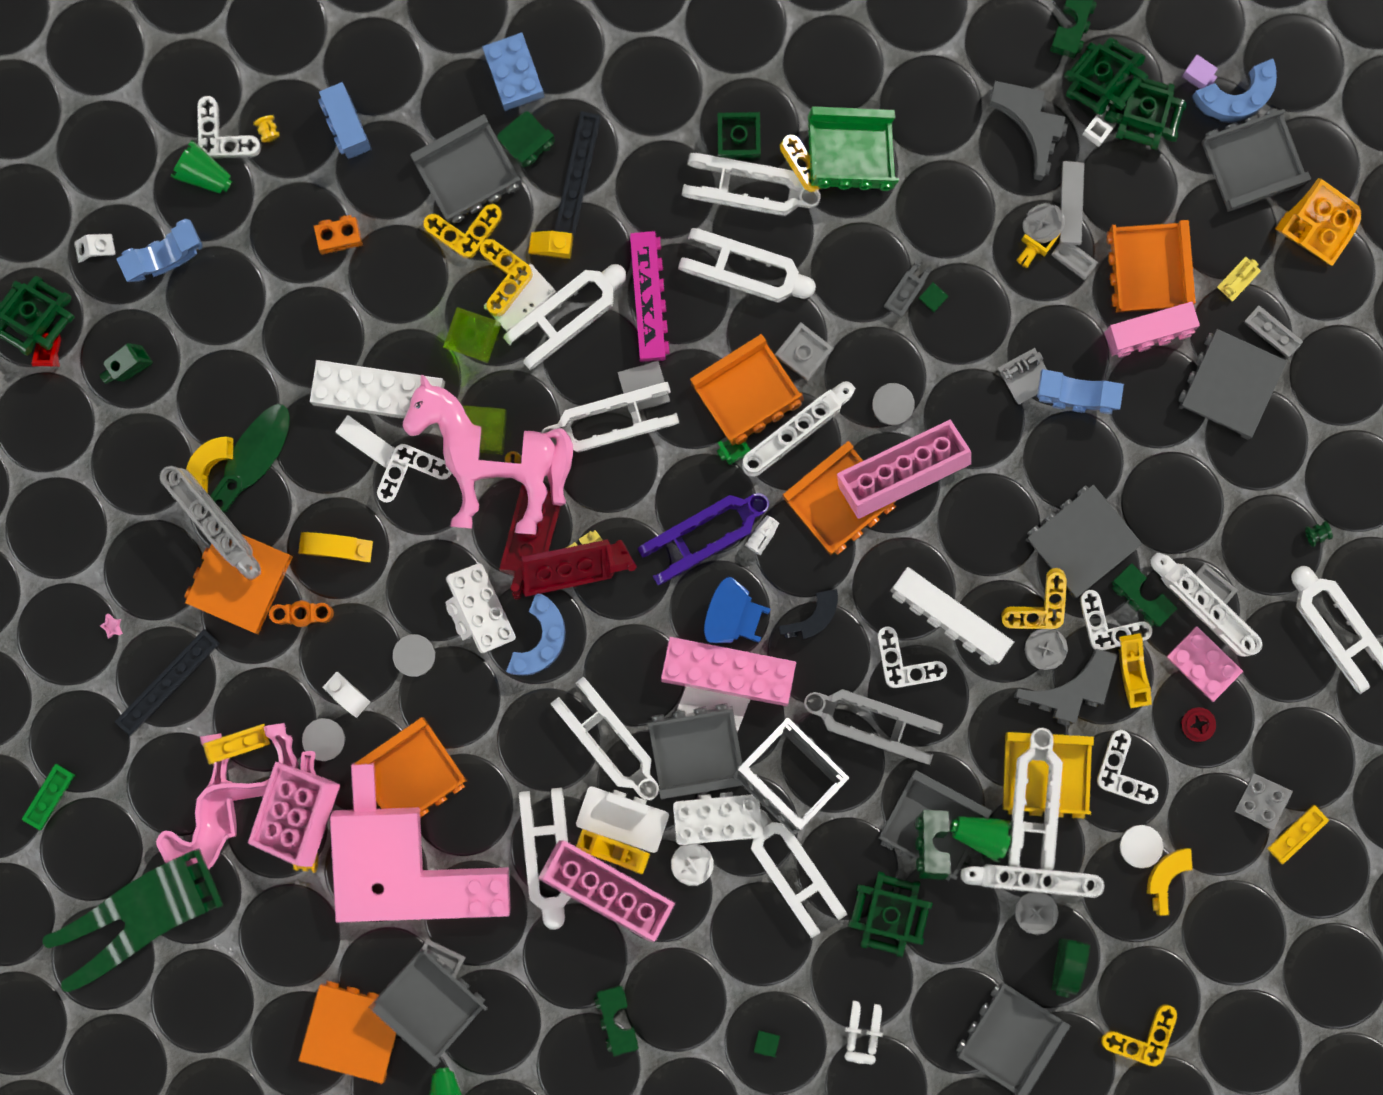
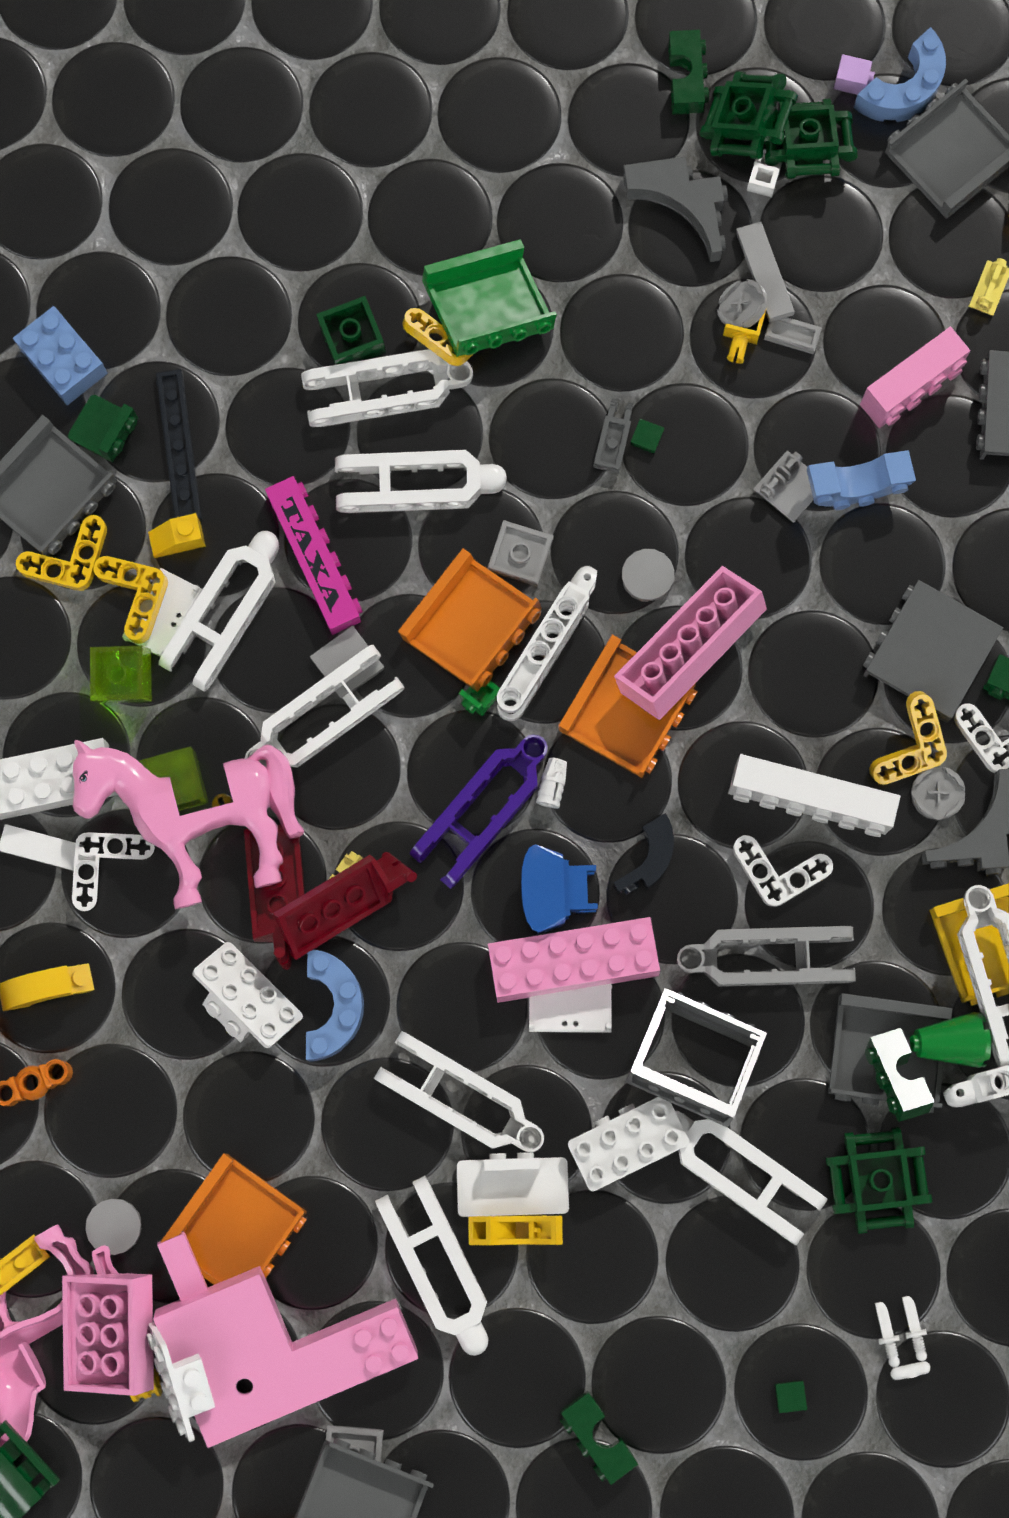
camera: 20 degrees left, 5 degrees down
(335, 871) = (182, 1383): none -> white bracket
(346, 694) = (122, 1161): white brick -> none
(414, 655) = (187, 1082): light grey tile -> none
(606, 890) = (526, 1281): bright pink brick -> none
(692, 864) = (617, 1209): white tile -> none
(695, 750) = (570, 1070): dark grey panel -> none
(1151, 266) = (884, 309): orange panel -> none

